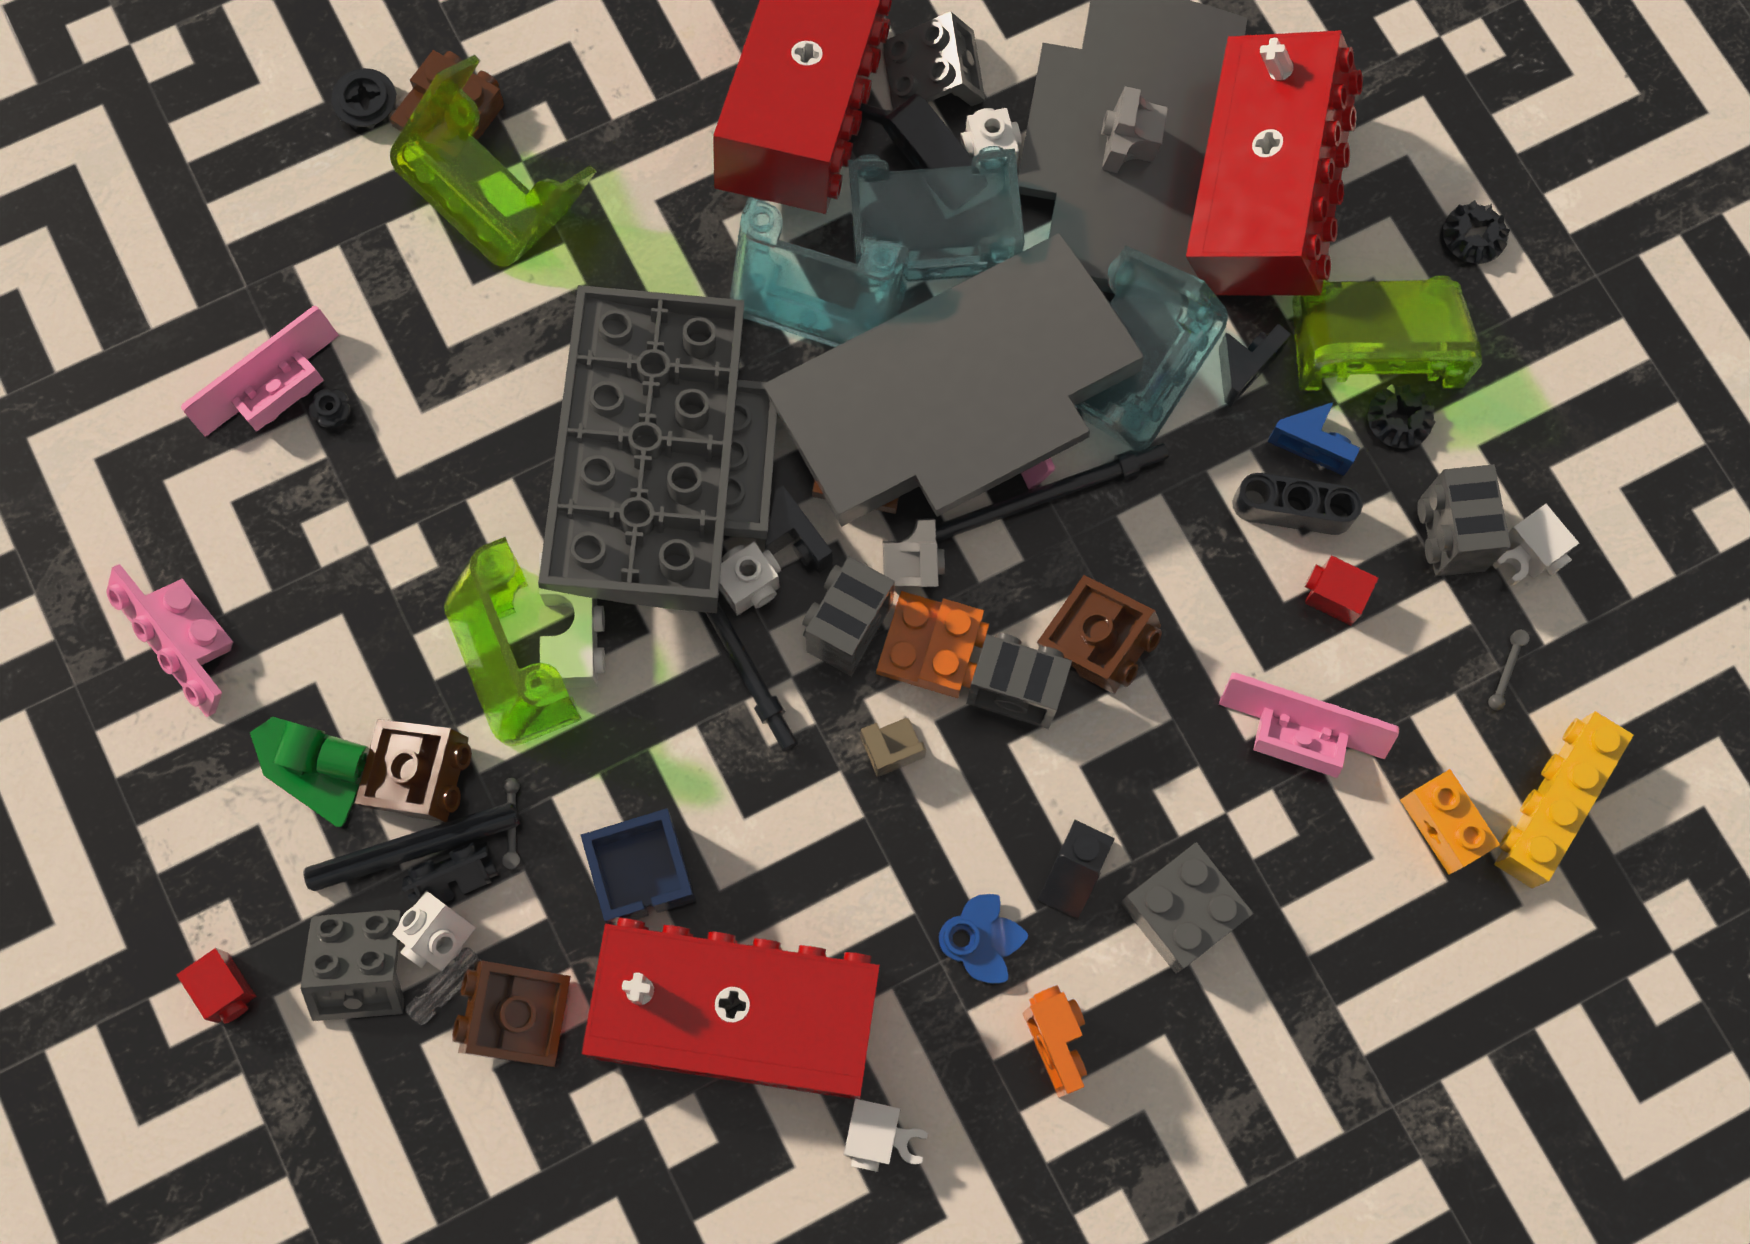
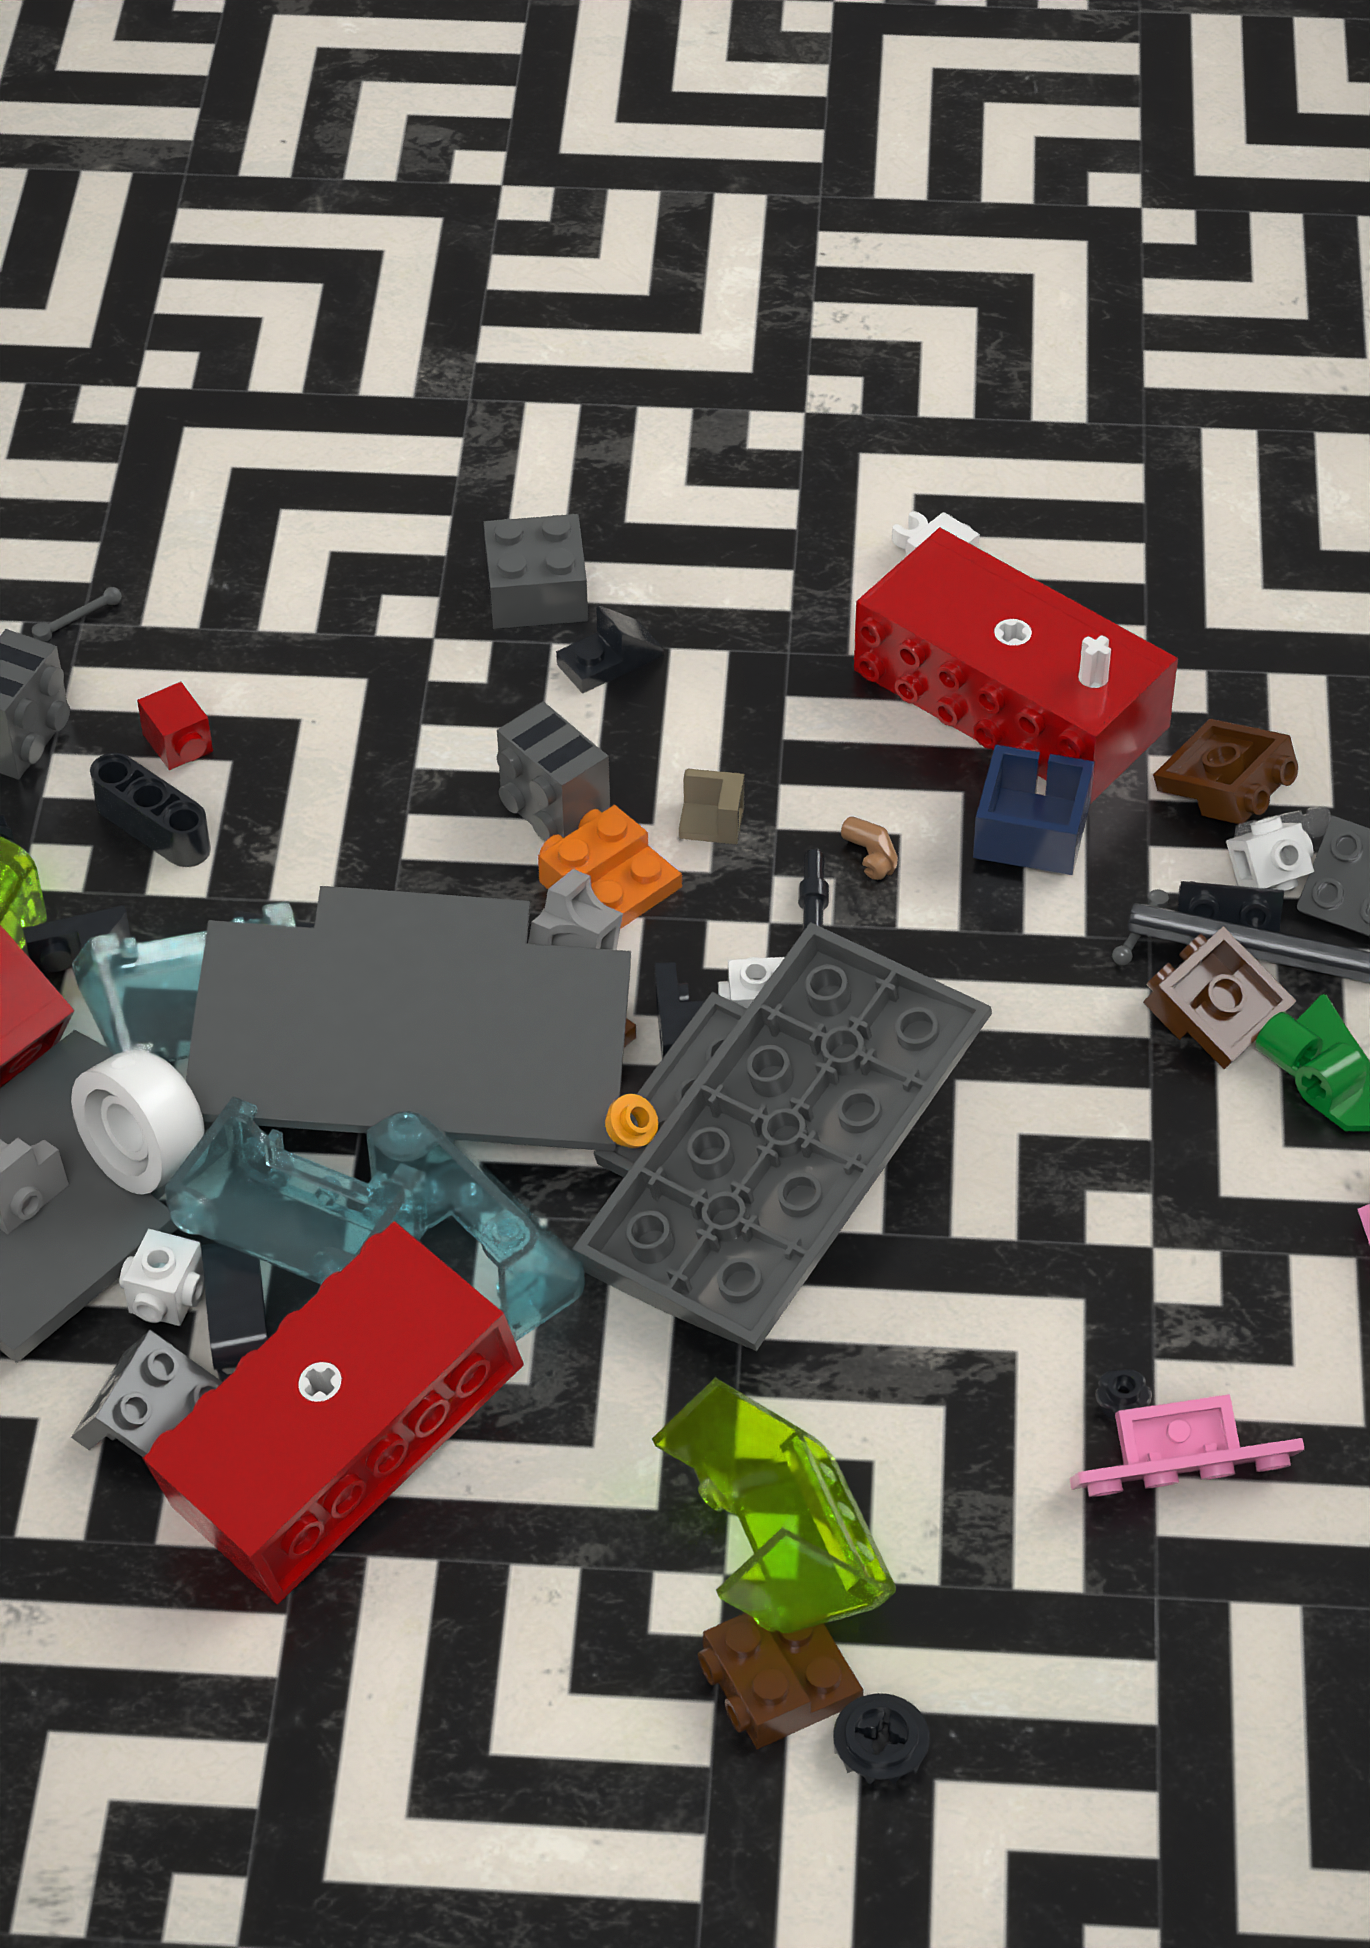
camera: 145 degrees left, 25 degrees down
(514, 700) = (1056, 1077): clear neon green windscreen -> none
(576, 650) = (1002, 1037): arch -> none
(750, 784) = (882, 855): none -> medium nougat arm
(758, 396) = (620, 1126): none -> light orange plate
(848, 615) = (679, 900): dark grey brick -> none
(988, 936) = (741, 645): blue plate -> none
(1053, 1025) = (727, 525): orange plate -> none
(1072, 193) = (137, 1119): none -> white piece
(1103, 633) = (437, 794): reddish brown plate -> none
(1304, 437) = (79, 856): blue slope -> none
(1304, 727) = (318, 641): bright pink bracket -> none
(1449, 822) = (245, 524): light orange brick -> none
(1563, 799) = (129, 495): yellow brick -> none

